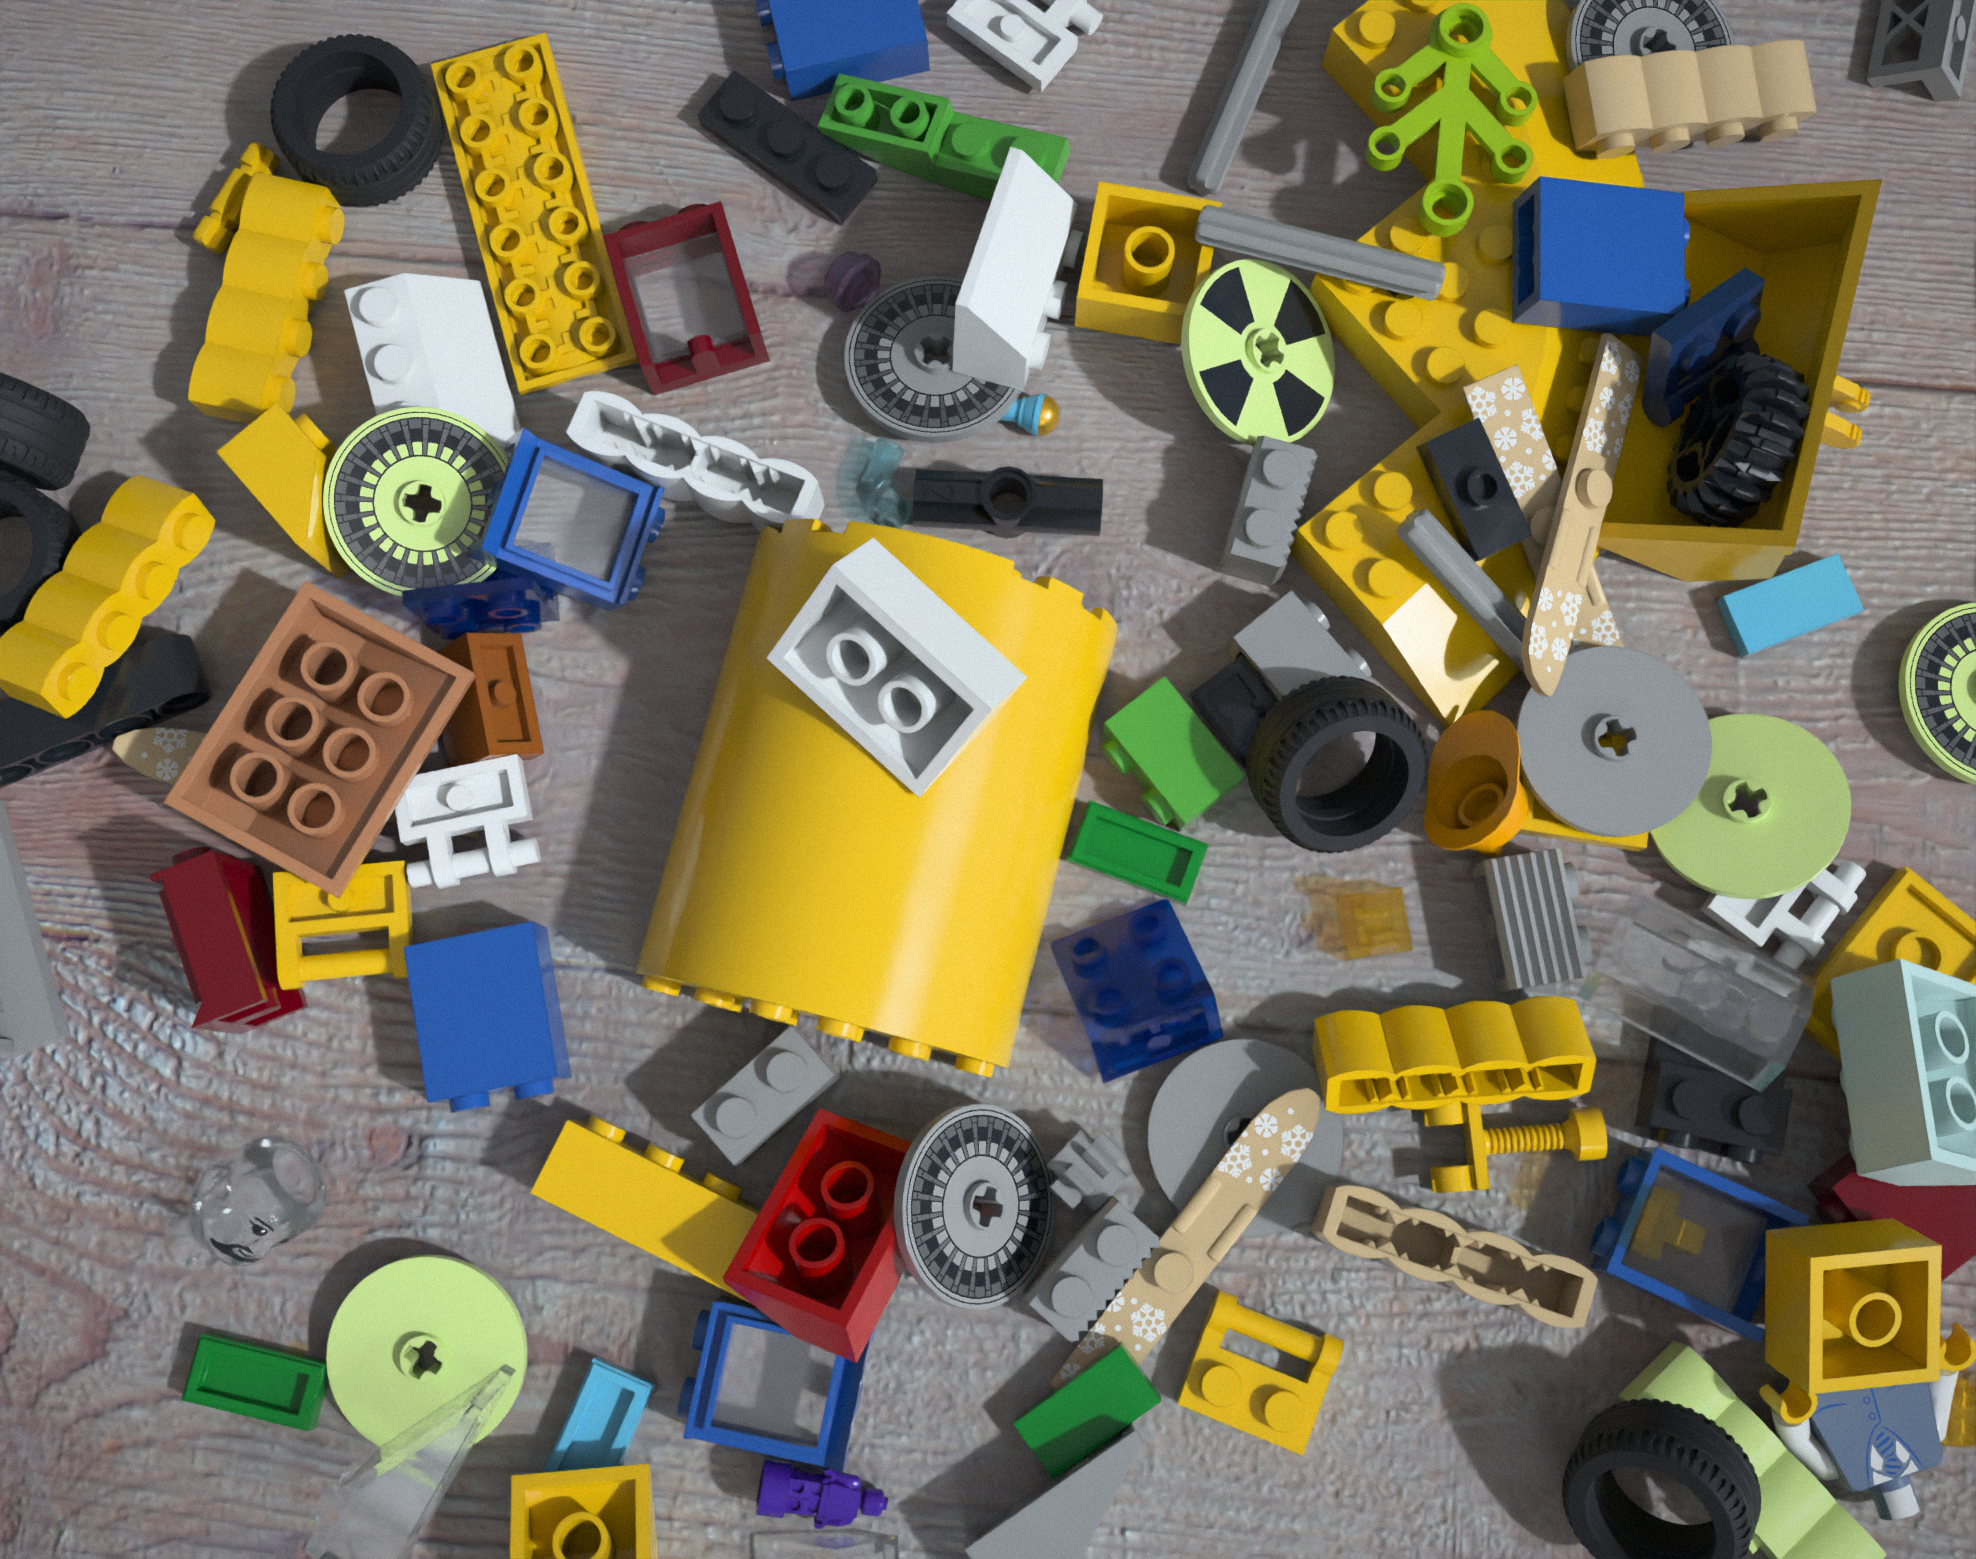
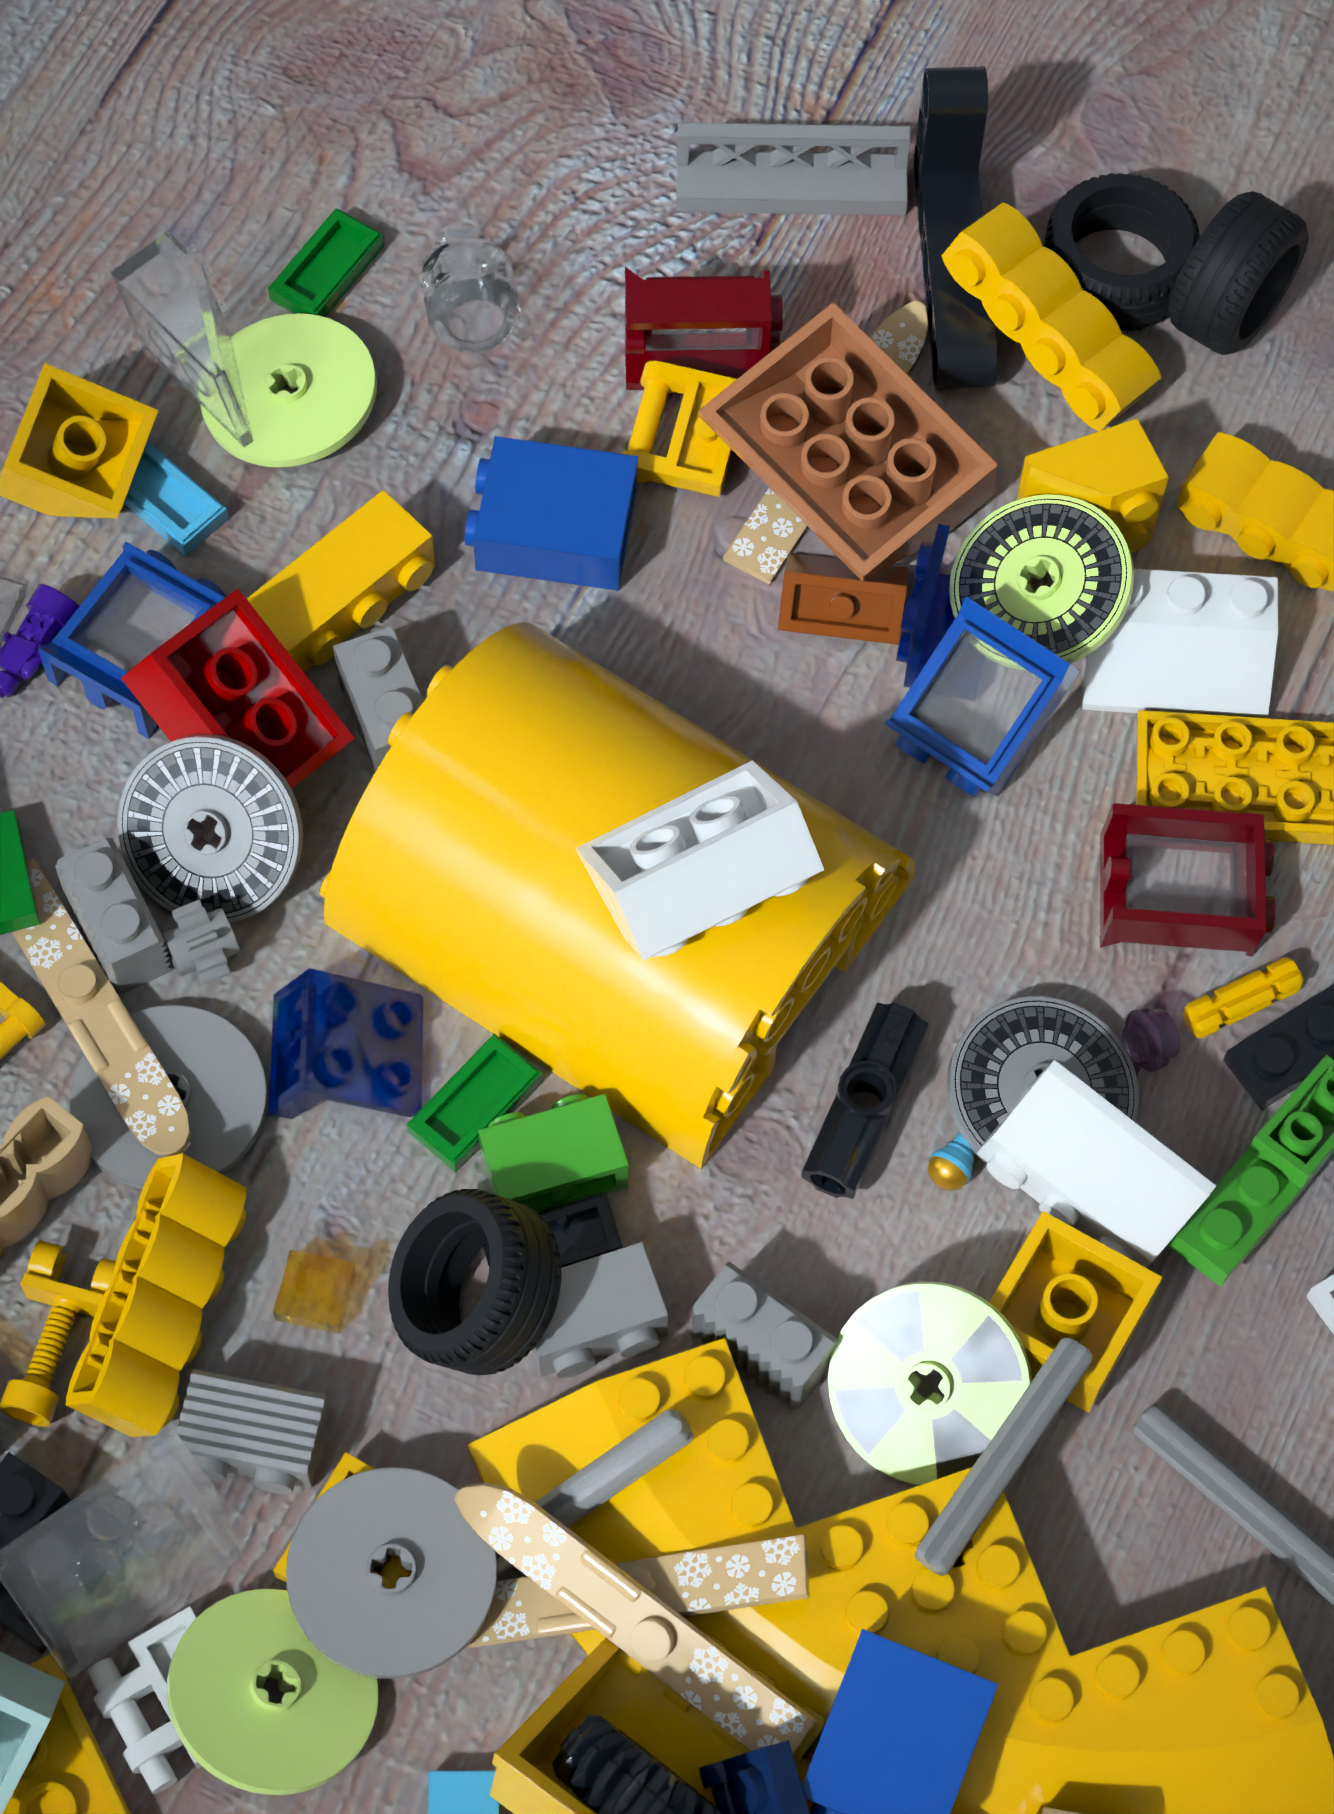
camera: 105 degrees right, 15 degrees down
(460, 802) = (755, 547): white plate -> none
(711, 470) = (996, 828): white brick -> none
(779, 219) = (1243, 997): none -> yellow axle
(876, 487) = (933, 992): clear light blue arm -> none
(1454, 109) = (1119, 1657): lime plant -> none
(1474, 490) = (695, 1514): black plate -> none
(1475, 785) = (397, 1424): light orange piece -> none

